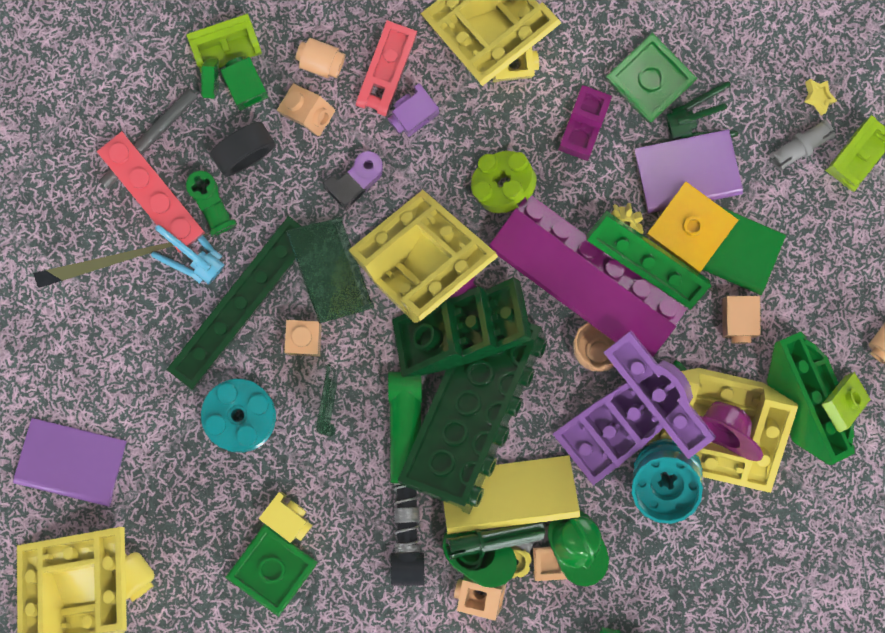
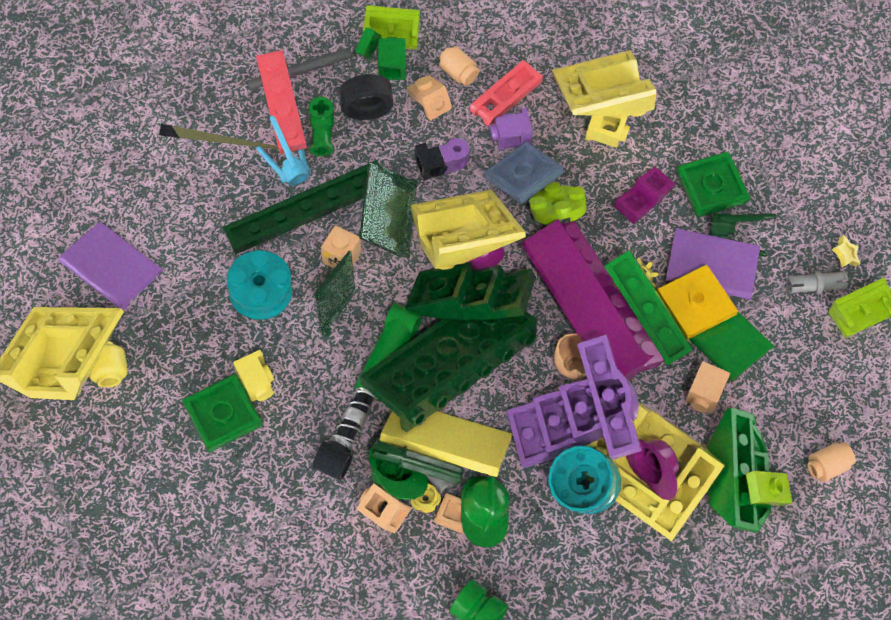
camera: 25 degrees right, 20 degrees down
(449, 157) = (524, 172): none -> sand blue plate

